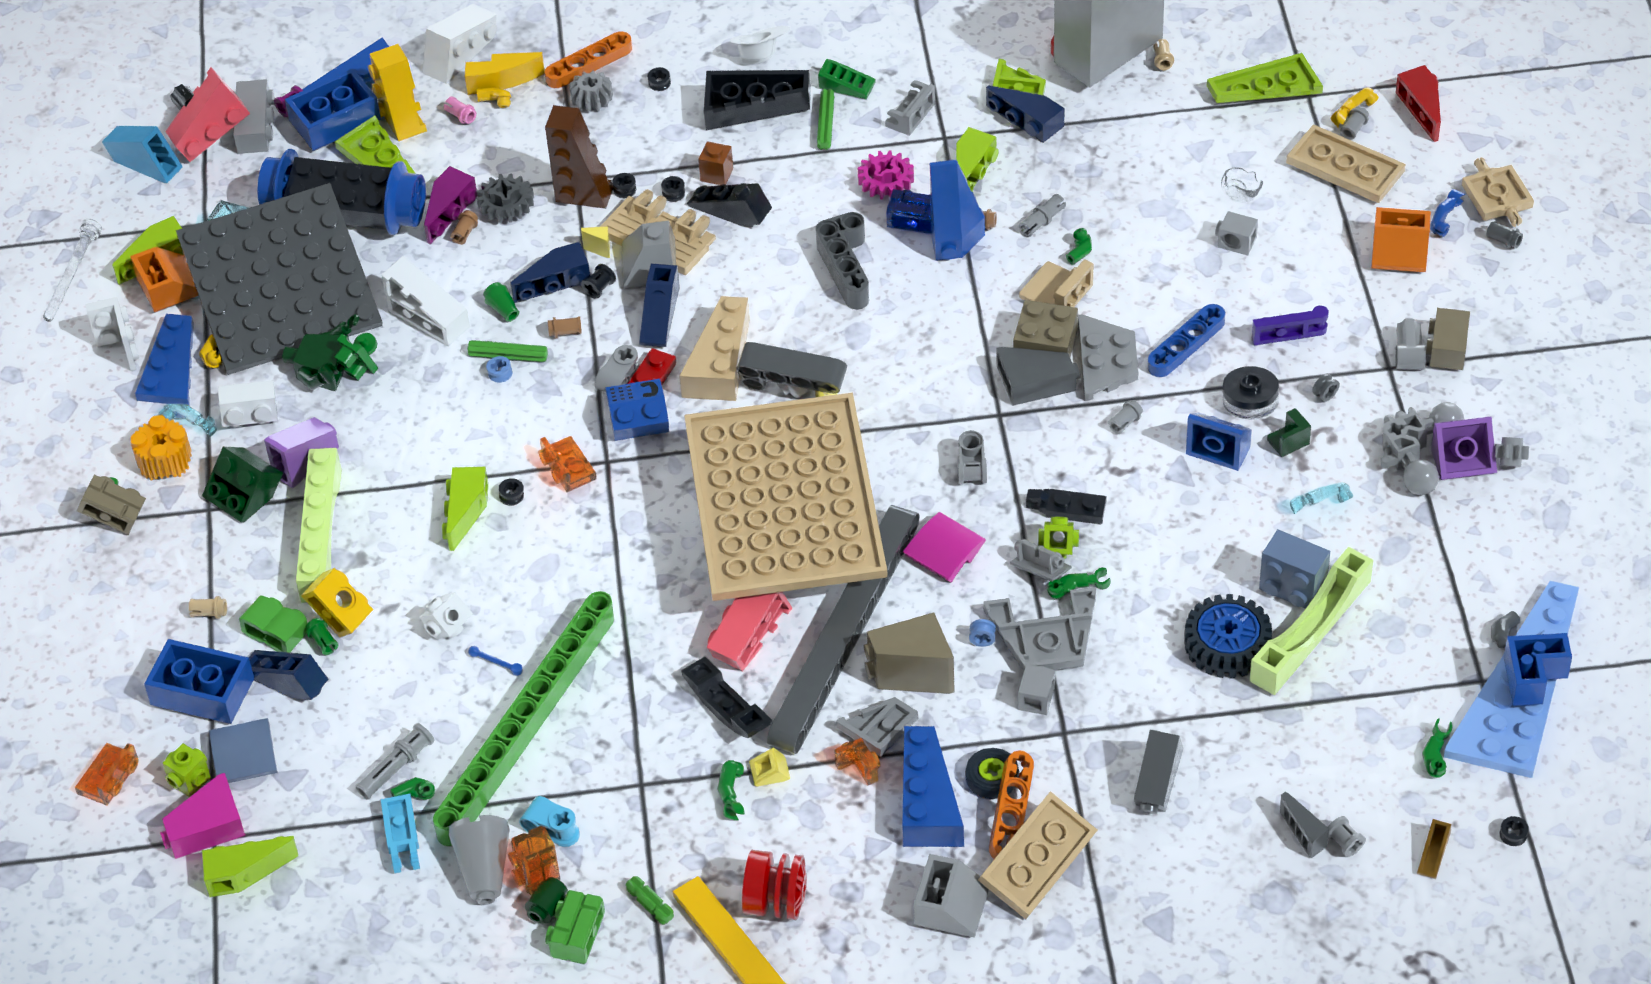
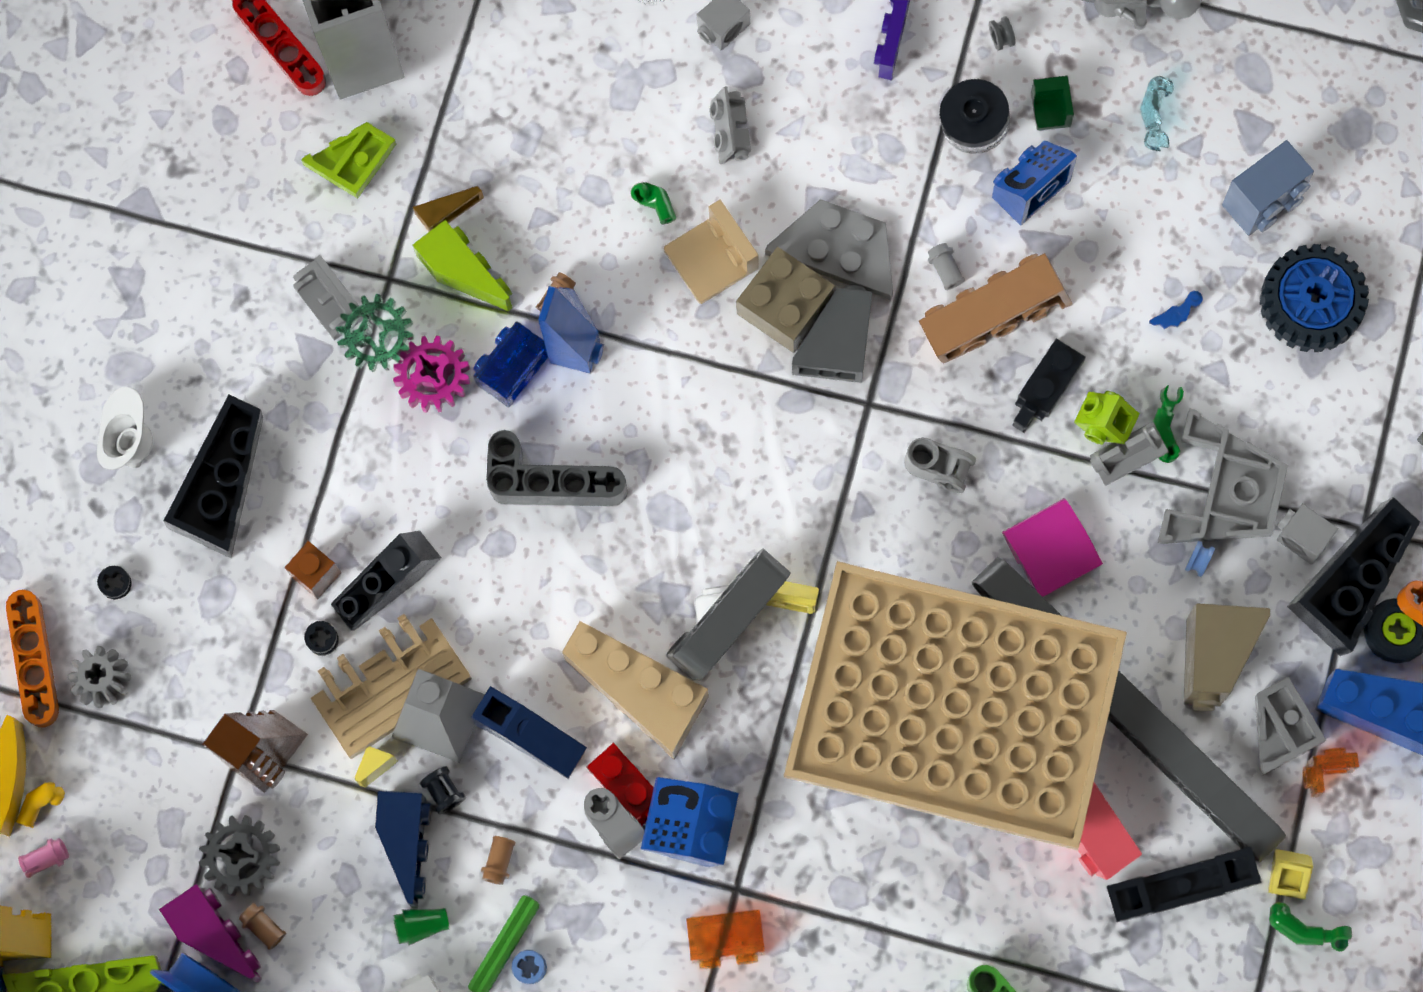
camera: 65 degrees left, 25 degrees up
(624, 185) = (296, 695): black bush -> none
(825, 119) = (292, 406): bright green axle -> none
(832, 73) = (237, 372): green slope -> none
(894, 129) = (389, 329): none -> clear green gear
(1012, 145) = (447, 207): none -> pearl gold piece
(1017, 723) = (1349, 585): none -> black wedge
(1028, 111) = (412, 161): dark blue slope -> none
(1042, 215) = (583, 221): light grey pin -> none
(1109, 451) = (994, 308): none -> medium nougat wedge
(1168, 259) = (727, 111): none -> light grey hinge
(1170, 565) = (1178, 314): none -> blue piece
(1183, 338) = (860, 147): blue beam -> none
(1285, 653) = (1377, 255): yellowish green arch -> none

